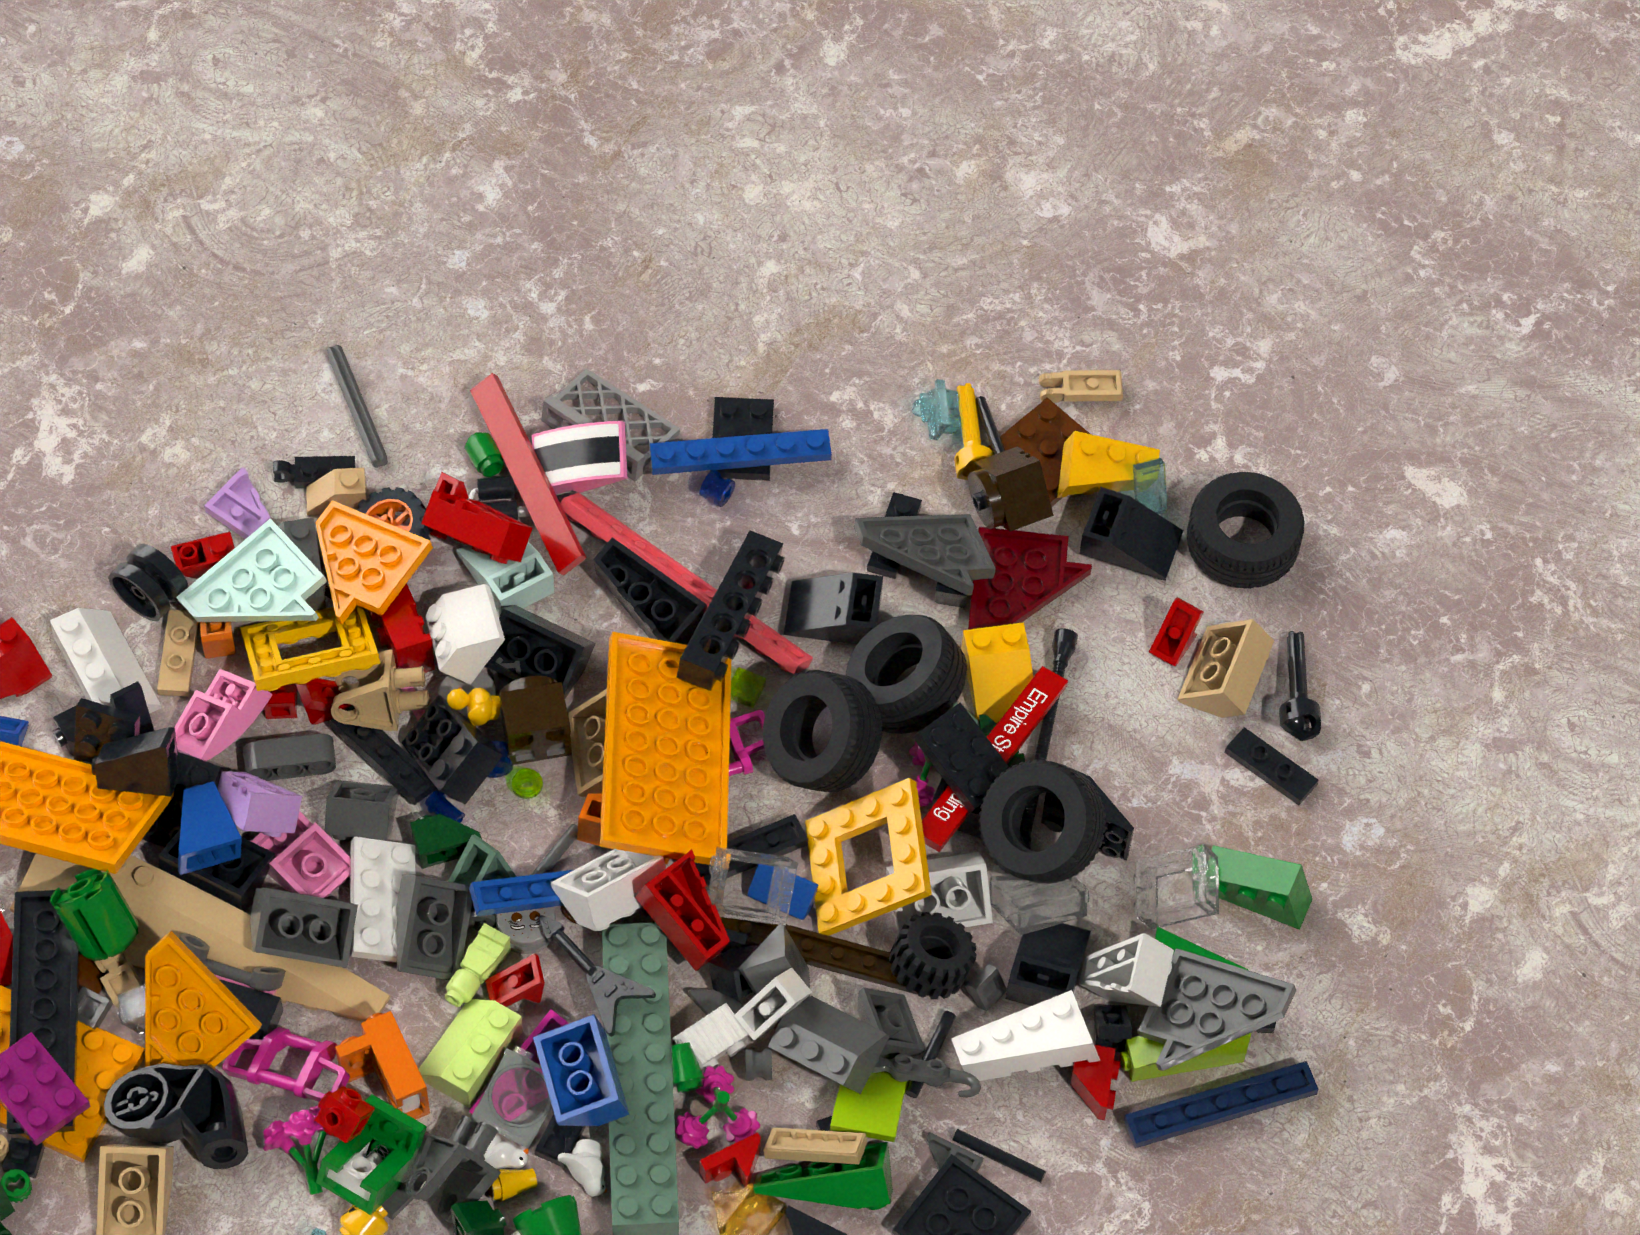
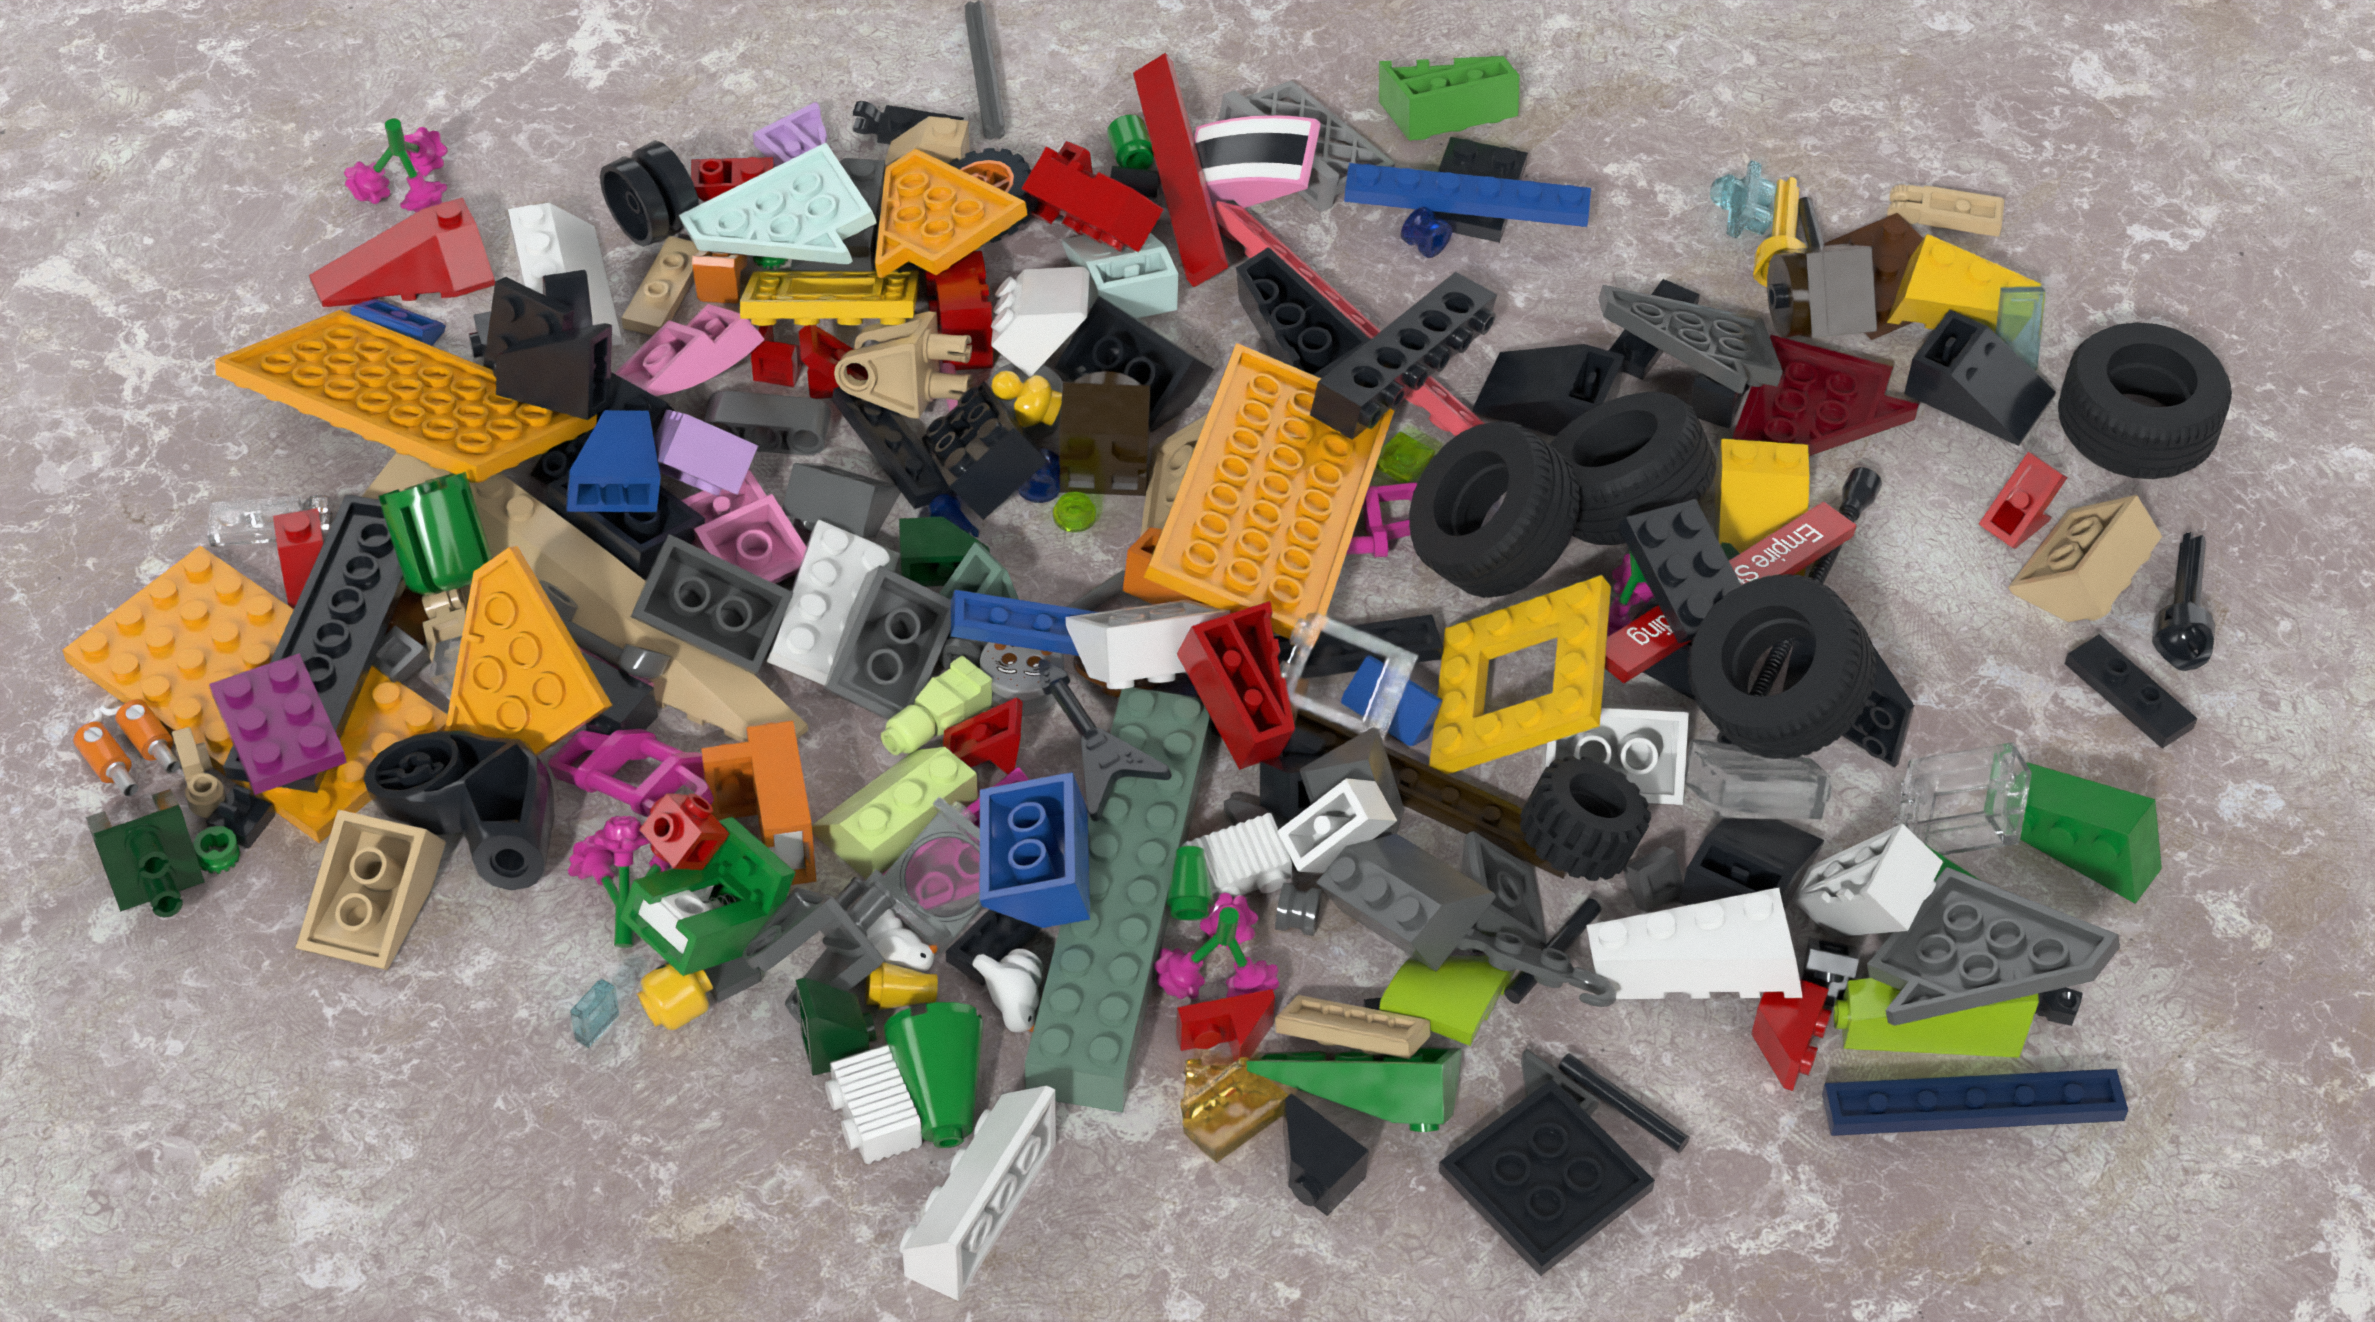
camera: 15 degrees right, 10 degrees down
(705, 364) = (1448, 97): none -> bright green wedge

